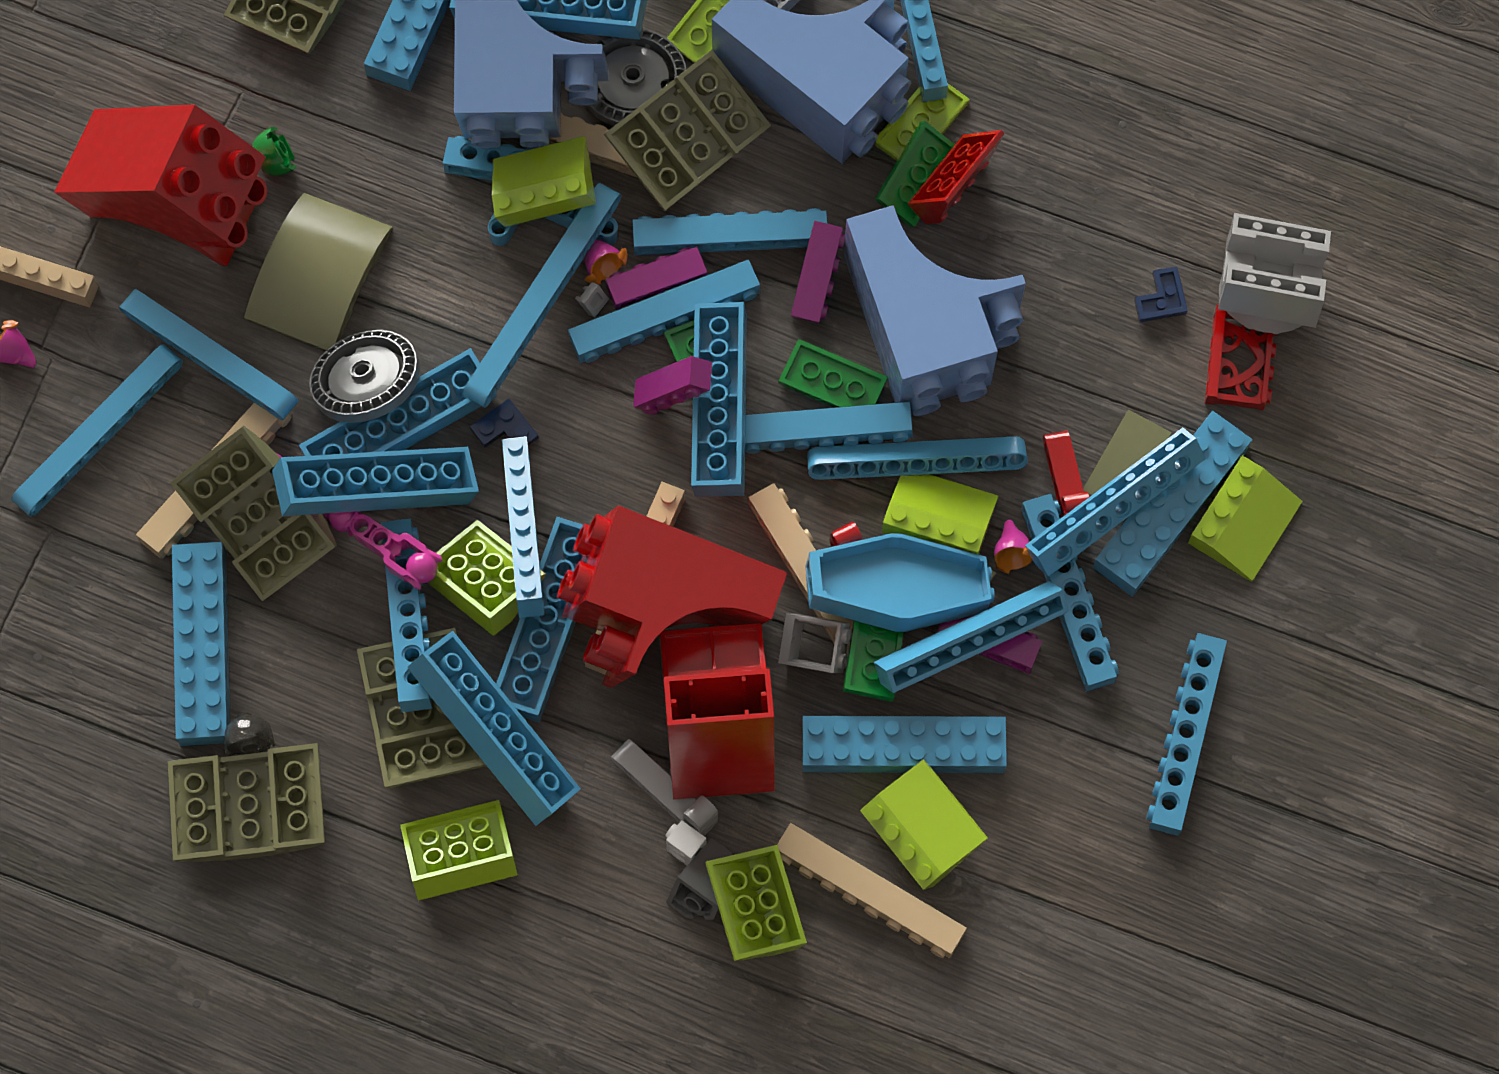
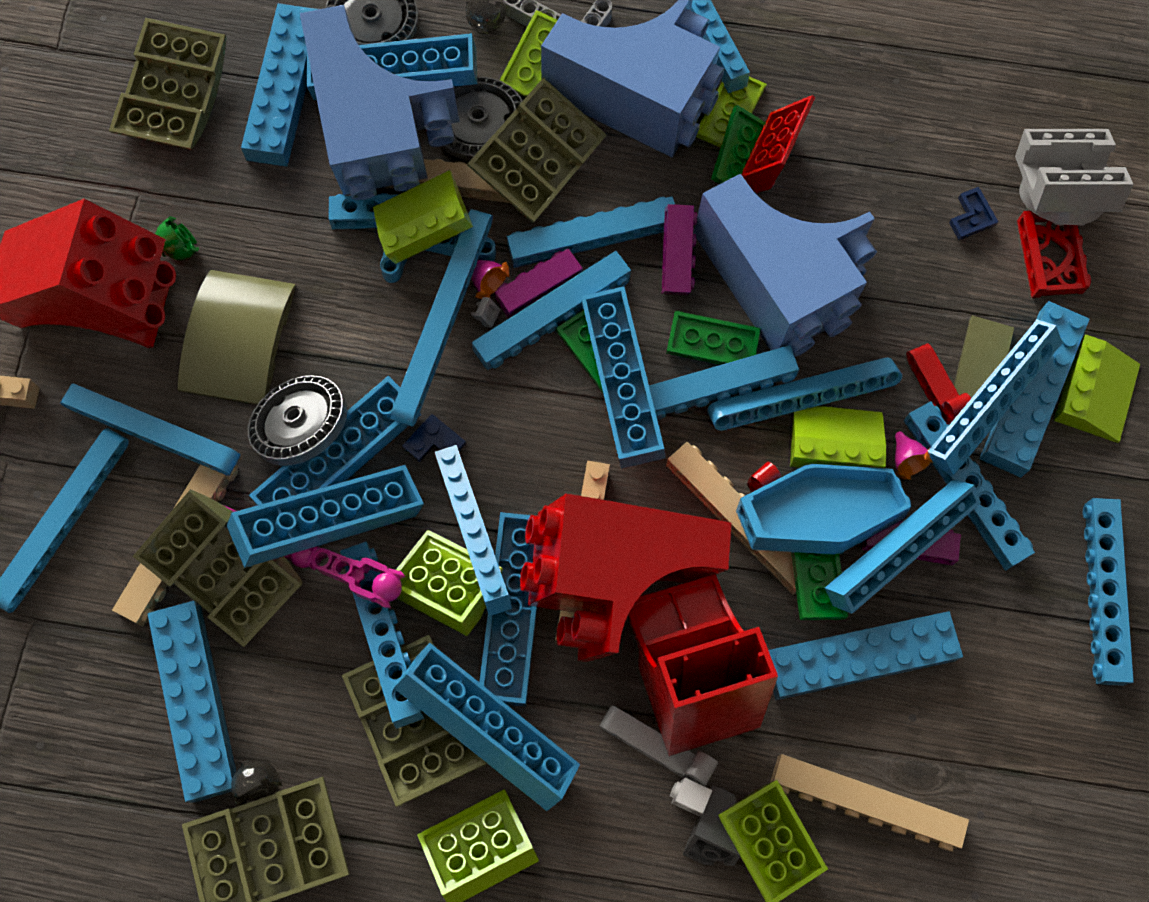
camera: 15 degrees left, 0 degrees up
(672, 385) = (578, 371): magenta brick -> none
(792, 638) = (738, 580): light grey window -> none
(924, 825) = (904, 729): lime slope -> none

